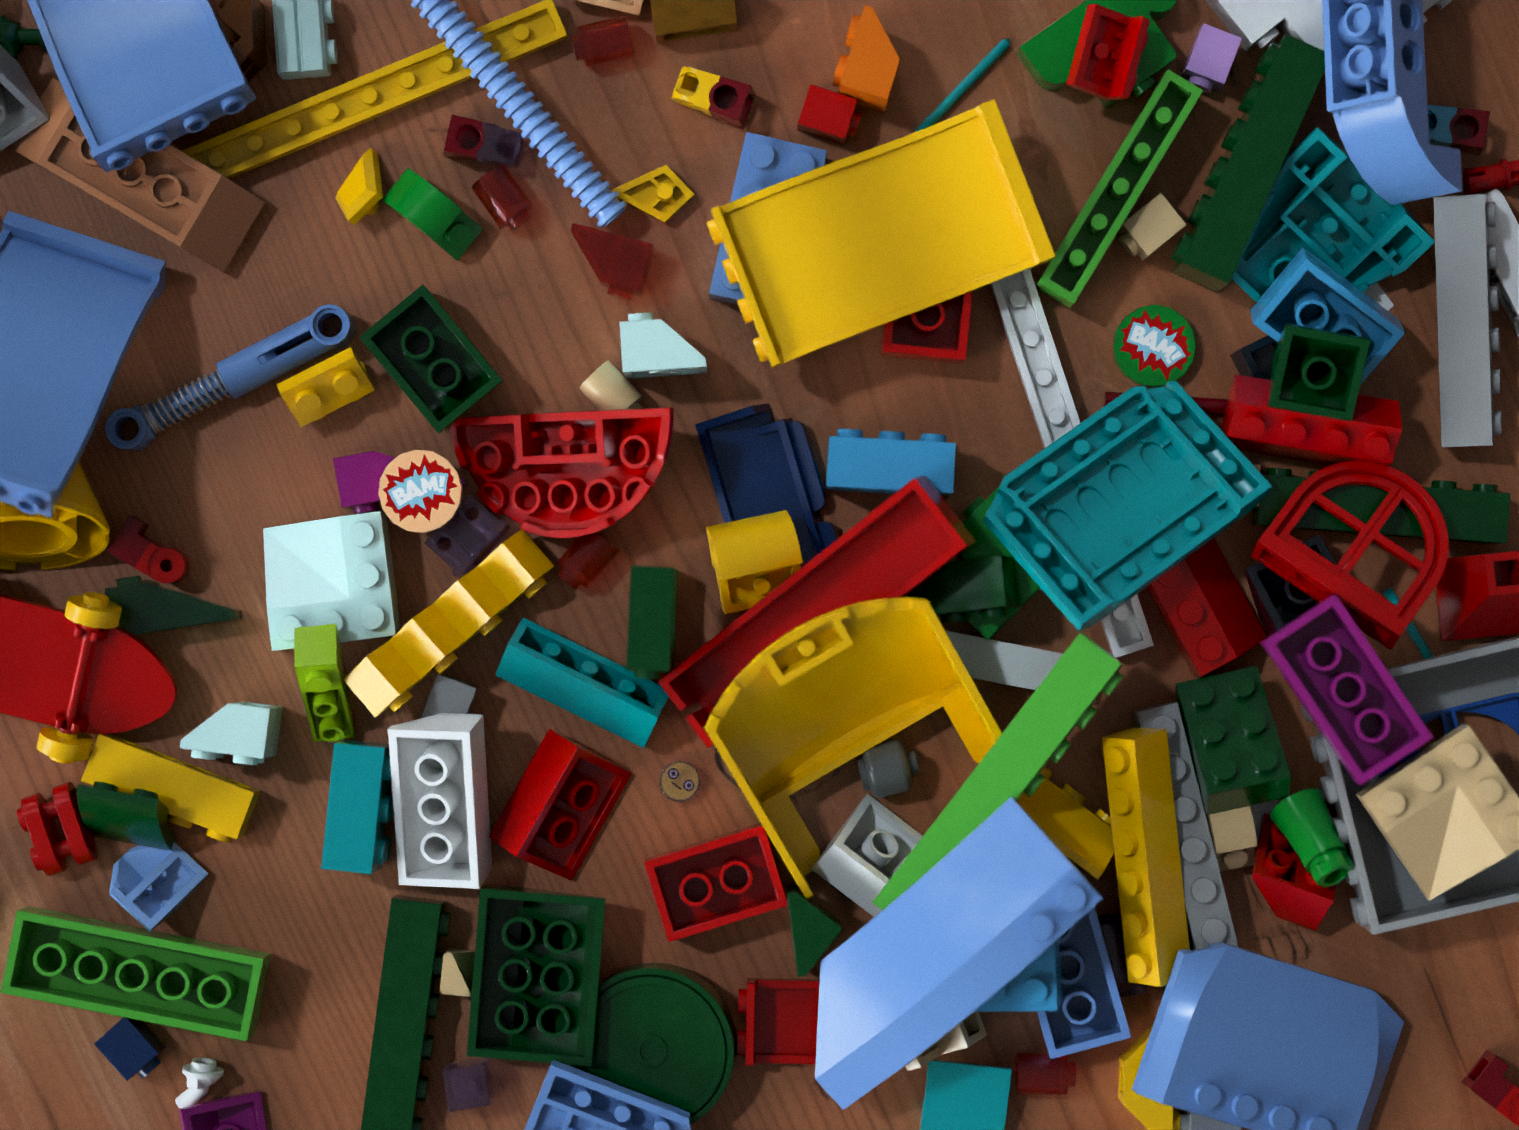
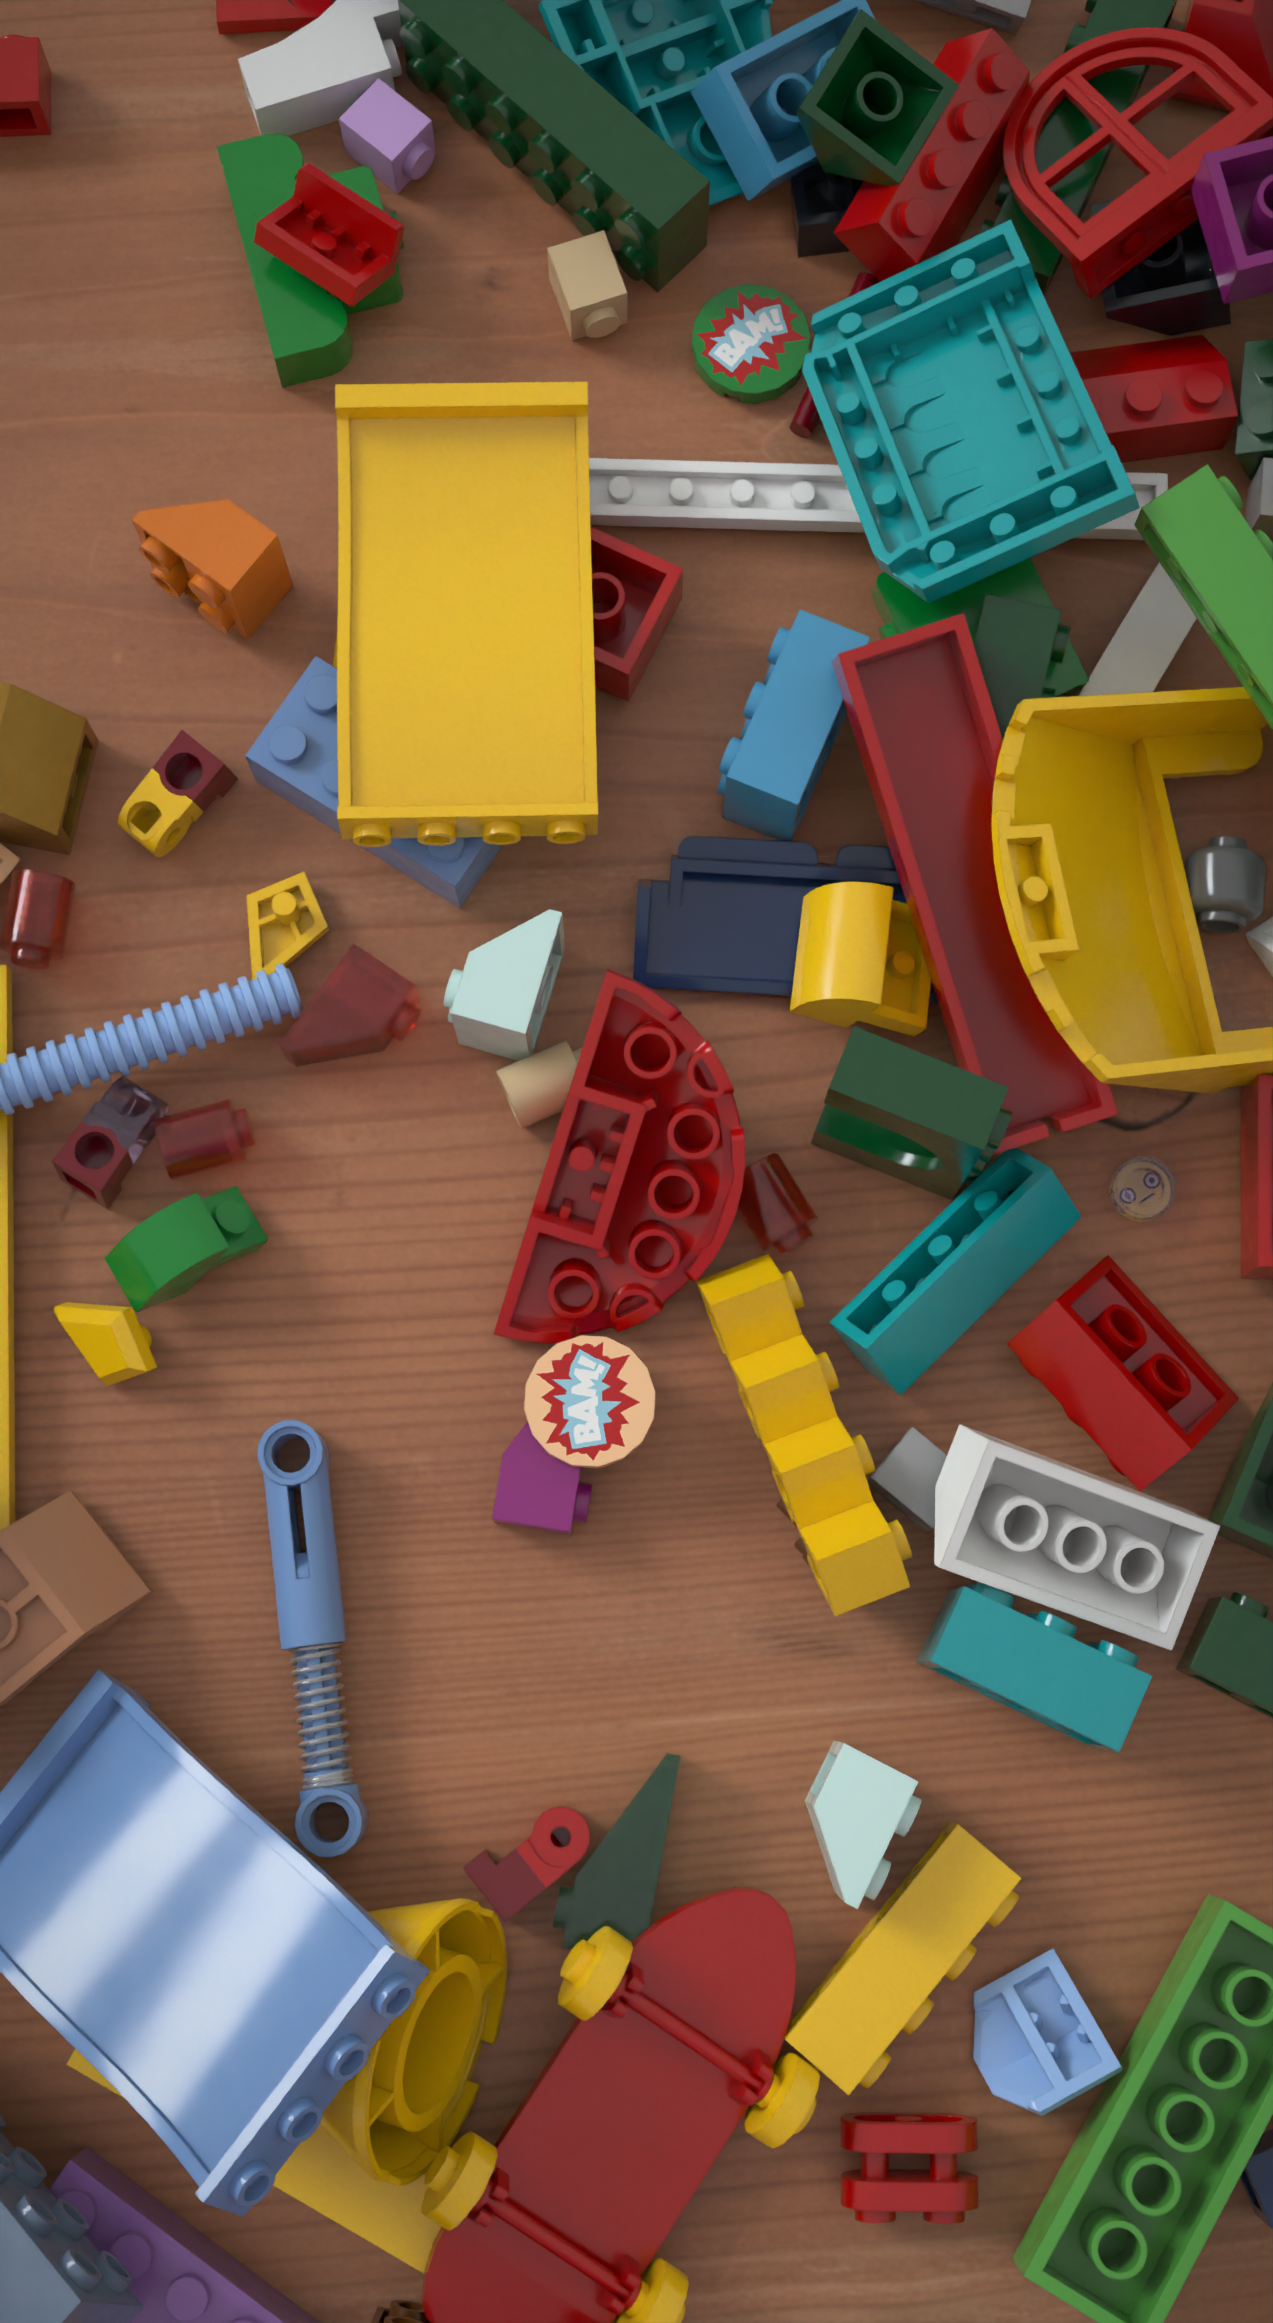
camera: 70 degrees left, 10 degrees down
(124, 816) = (928, 2045): dark green slope -> none
(320, 677) = (825, 1652): lime slope -> none
(326, 387) = (381, 1491): yellow bracket -> none
(331, 575) = (674, 1594): light aqua slope -> none
(431, 359) = (399, 1319): dark green brick -> none
(469, 538) = (681, 1365): clear purple piece -> none
(829, 115) = (266, 649): red brick -> none
(970, 79) = (298, 467): teal axle -> none
(1118, 188) = (518, 298): bright green brick -> none

